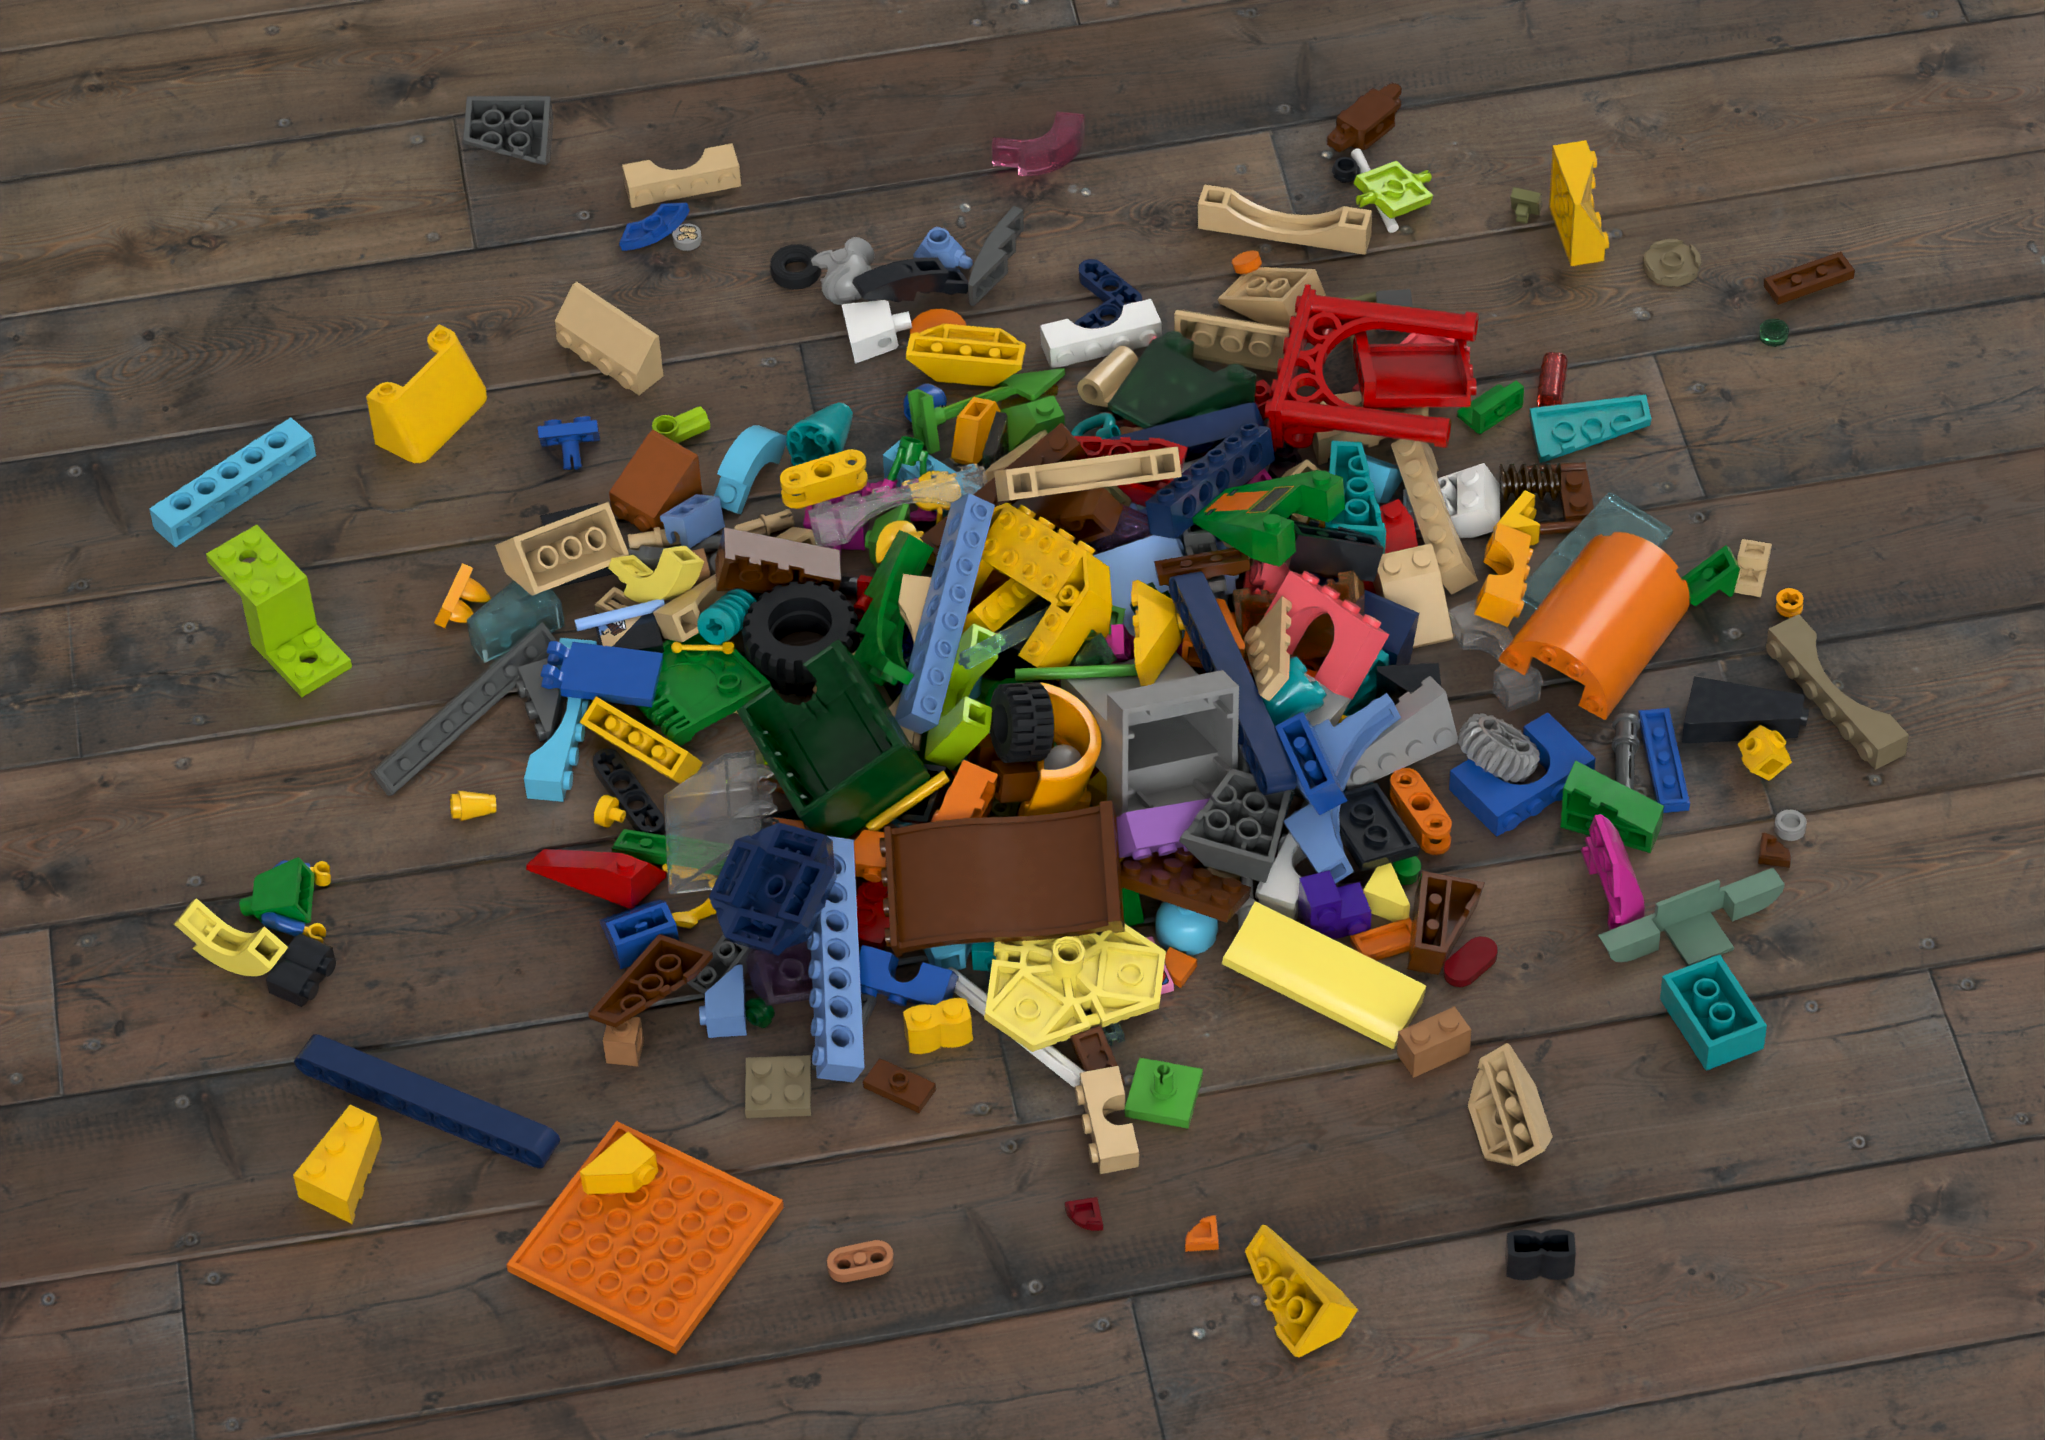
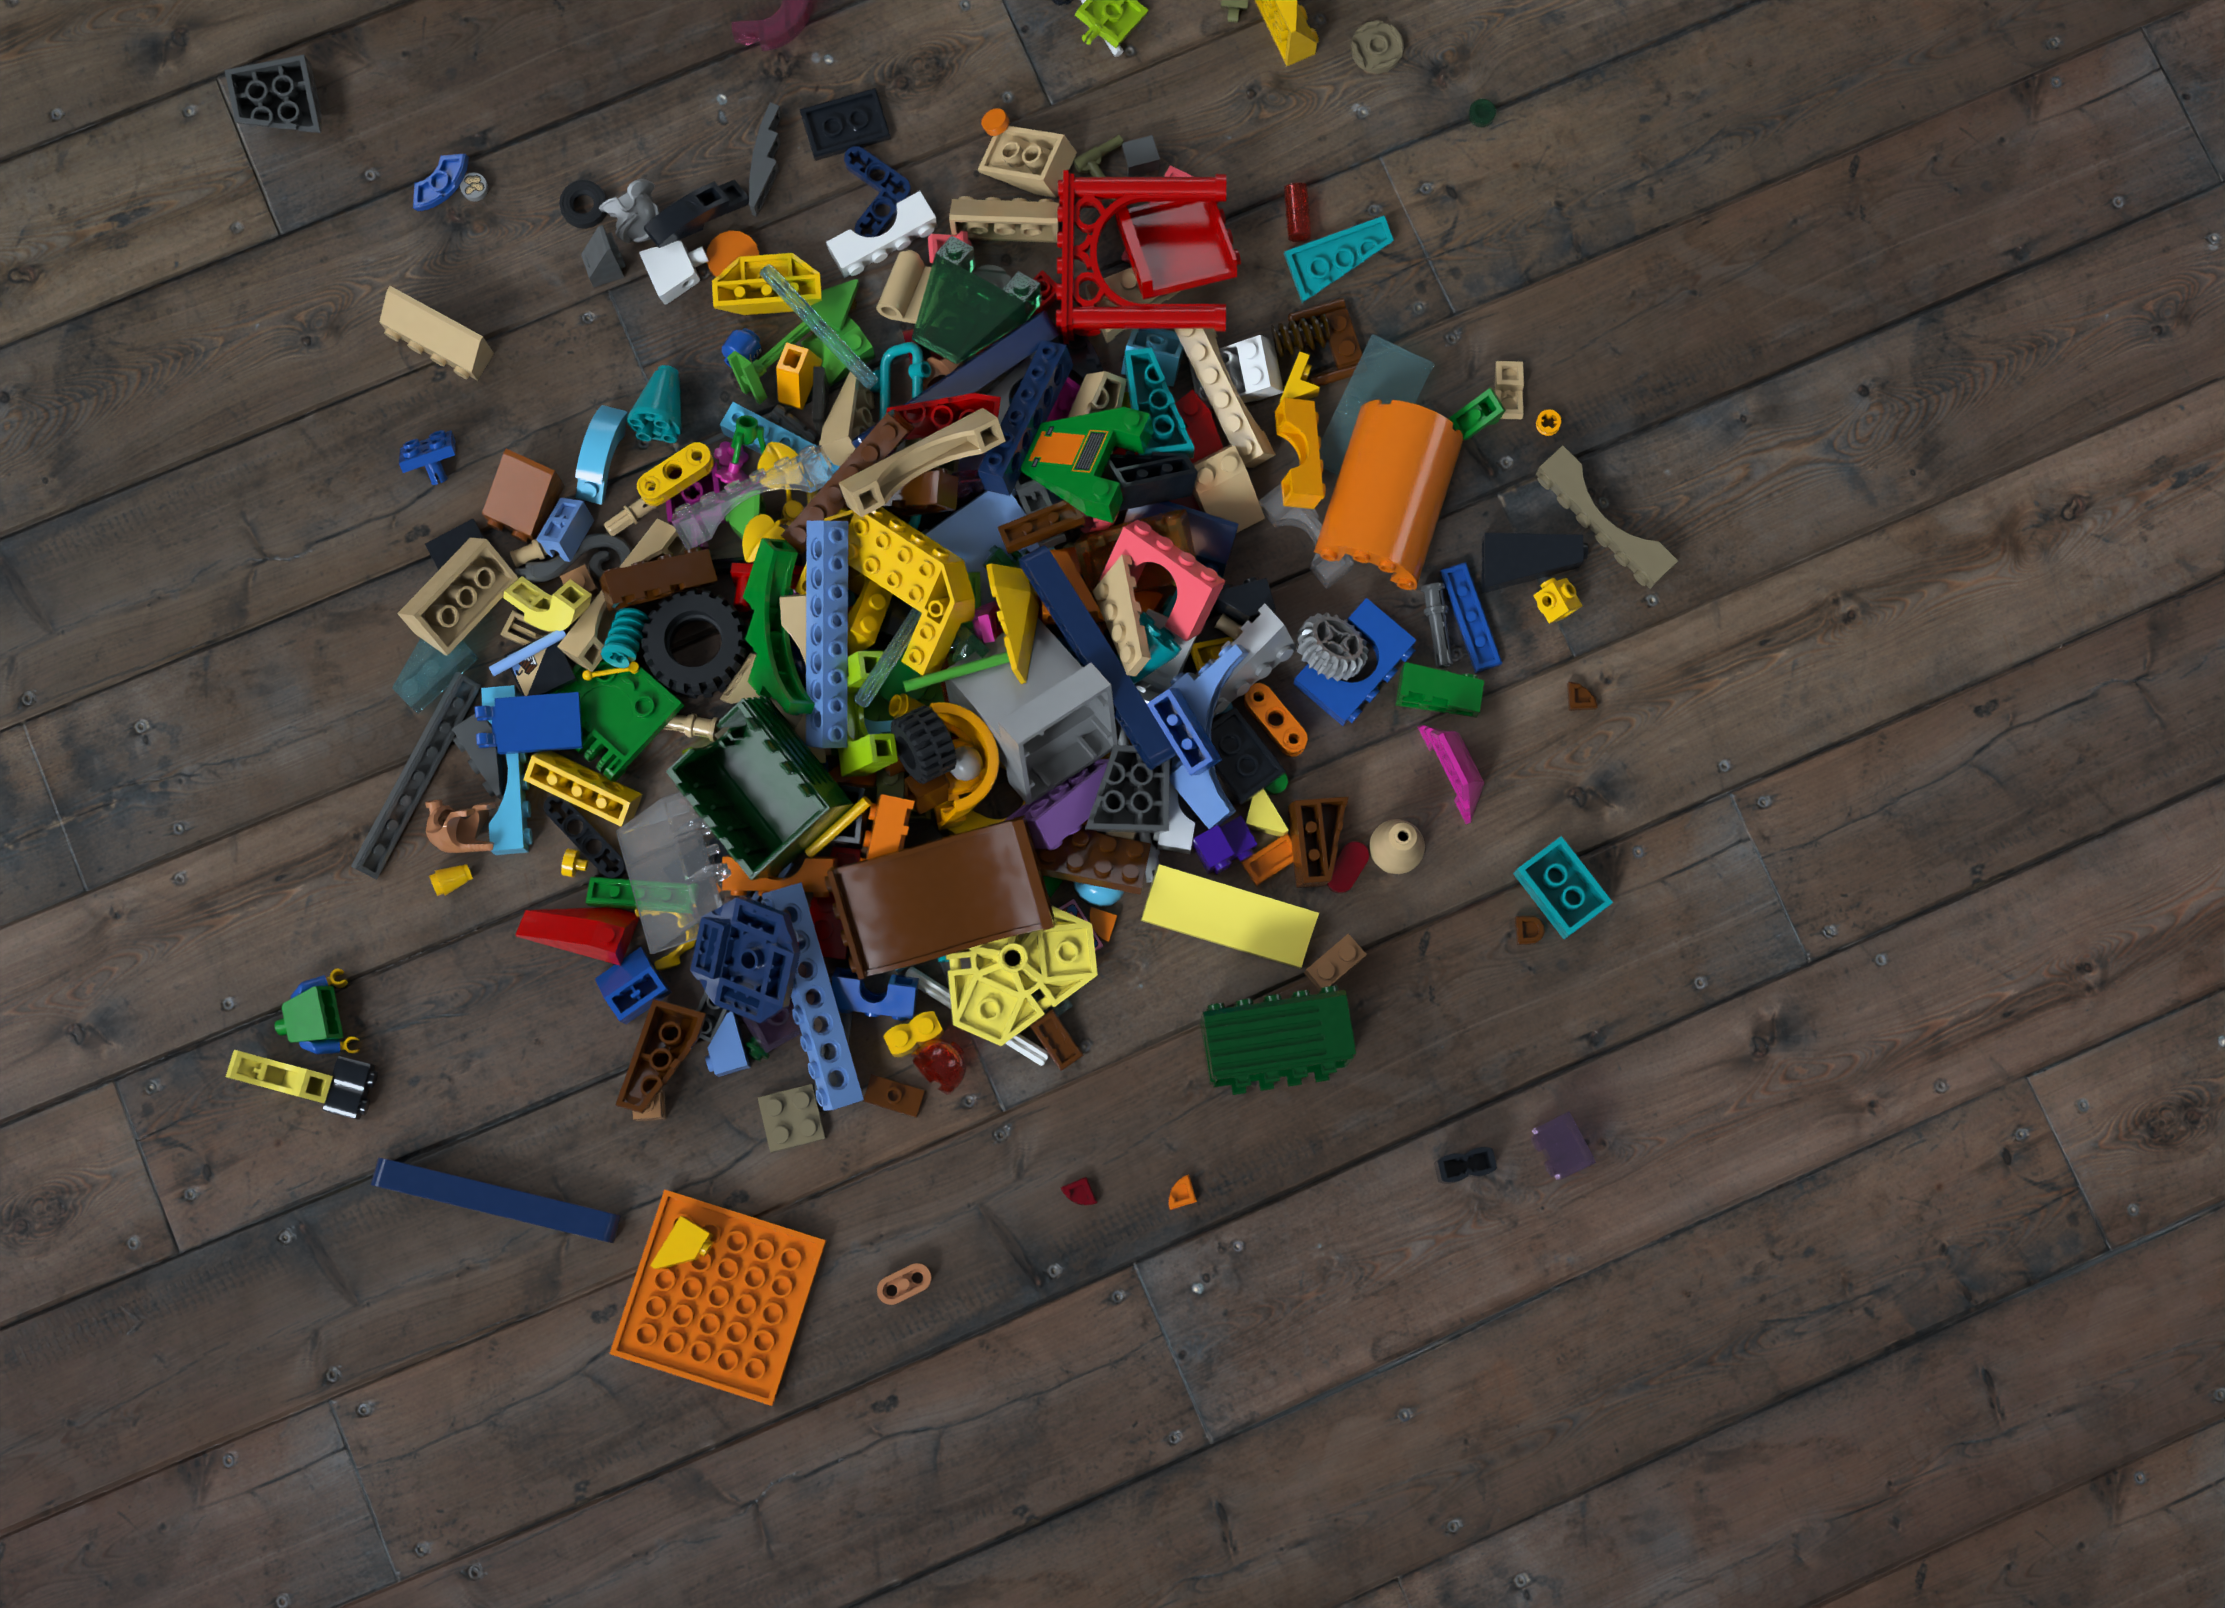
camera: 15 degrees left, 30 degrees up
(232, 482) = (147, 558): medium azure brick -> none
(279, 610) = (219, 713): lime bracket -> none
(340, 1164) = (441, 1283): yellow wedge -> none
(431, 406) = (294, 442): yellow windscreen -> none
(463, 588) = (376, 641): light orange tile -> none
(482, 757) = (454, 834): none -> nougat piece
(651, 184) = (424, 133): tan arch -> none
(682, 426) = (526, 417): lime piece -> none
(800, 301) = (603, 258): none -> dark grey slope
(942, 245) = (712, 163): medium blue rock -> none
(959, 1054) = (941, 1063): none -> clear red cylinder
(1007, 379) = (818, 326): none -> clear light blue axle
(1076, 241) = (845, 123): none -> black tile
(1112, 1145) = (1088, 1127): tan arch -> none
(1163, 1092) = (1118, 1056): bright green tile -> none
(1229, 212) = (974, 70): tan arch -> none
(1302, 1299) = (1280, 1247): yellow wedge -> none
(1346, 1078) = (1277, 1039): none -> dark green piece
(1492, 406) = (1252, 245): green panel -> none
(1507, 1109) = (1413, 1027): tan wedge -> none
(1532, 942) = (1397, 846): none -> tan cone
(1660, 1255) = (1562, 1146): none -> clear purple slope
(1667, 1055) = (1528, 930): none -> reddish brown tile
(1689, 919) = (1529, 794): sand green piece -> none
(1790, 825) = (1589, 666): light grey tile -> none
(1809, 278) = (1503, 45): reddish brown plate -> none

